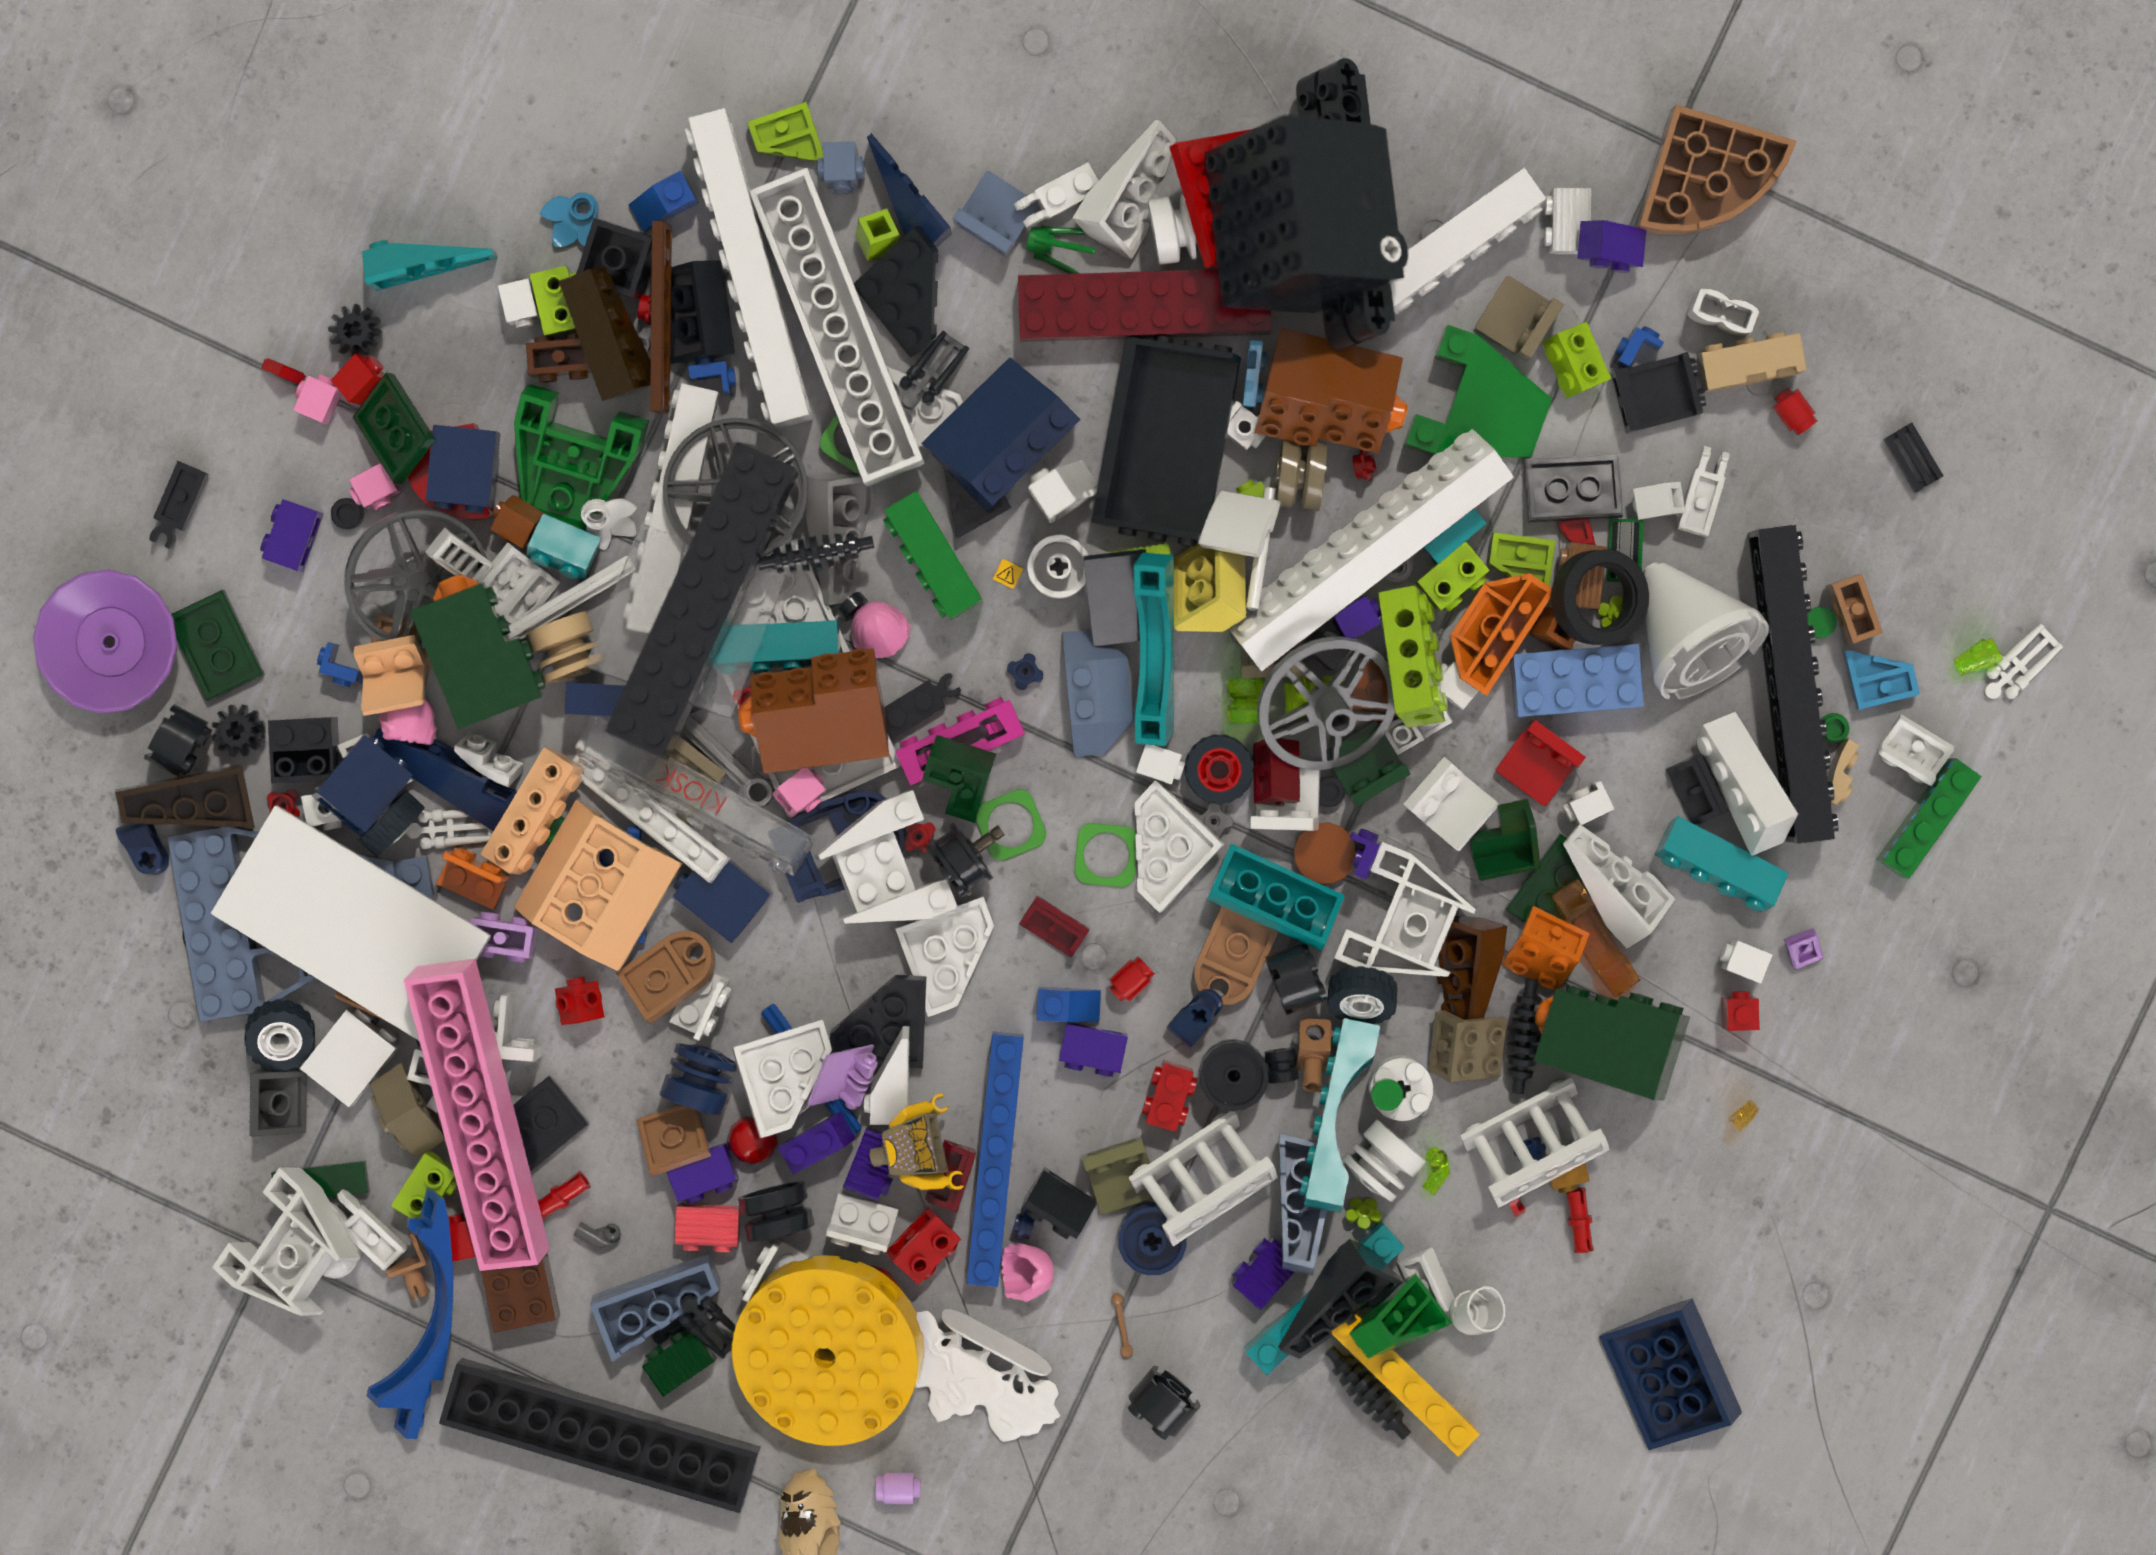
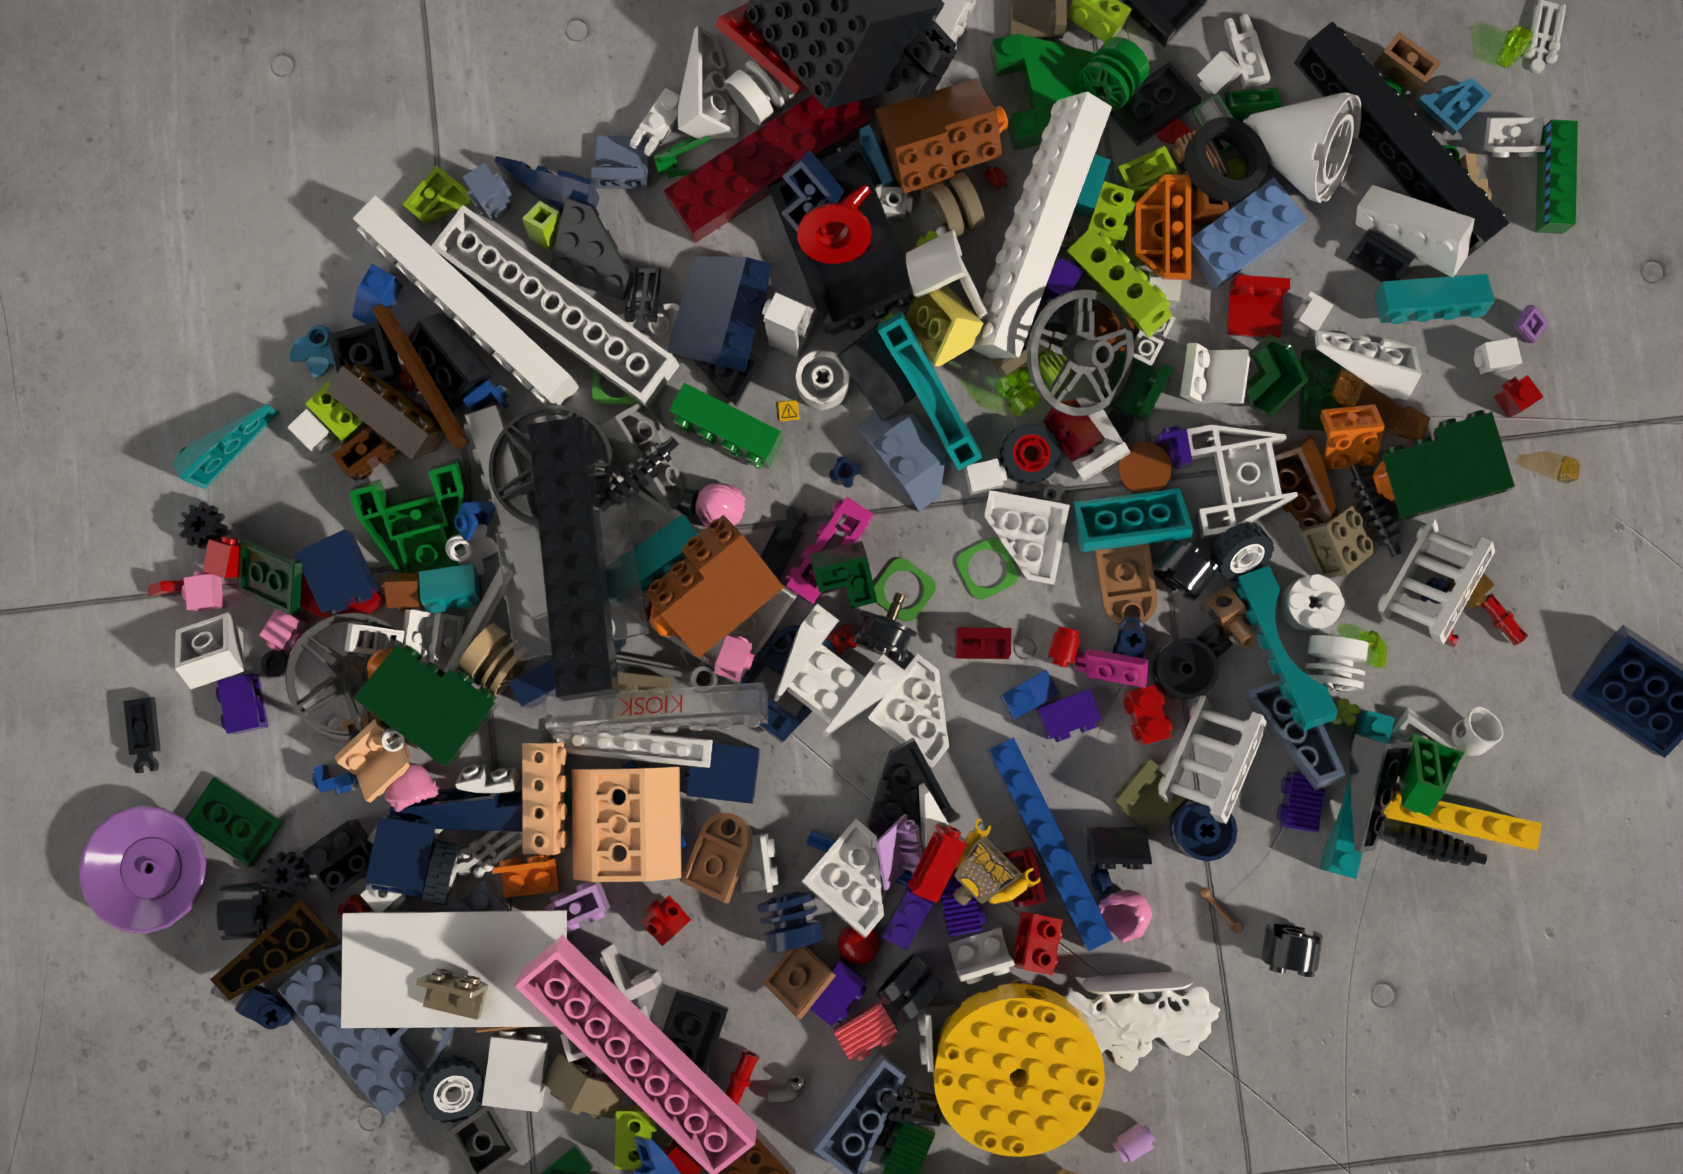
camera: 35 degrees left, 5 degrees down
(292, 465) = (209, 651): none -> white brick
(338, 949) = (454, 994): none -> dark tan bracket
(420, 671) = (395, 743): none -> white hinge
(628, 490) = (471, 515): none -> blue bracket
(873, 1111) = (937, 863): none -> red window
(1163, 376) = (812, 185): none -> dark blue brick
(1164, 1029) = (1113, 667): none -> dark pink hinge
(1165, 428) = (836, 230): none -> red piece
(1387, 1094) = (1309, 610): green tile -> none
(1546, 437) = (1115, 72): none -> green wheel
(1675, 549) = (1248, 102): none -> green slope

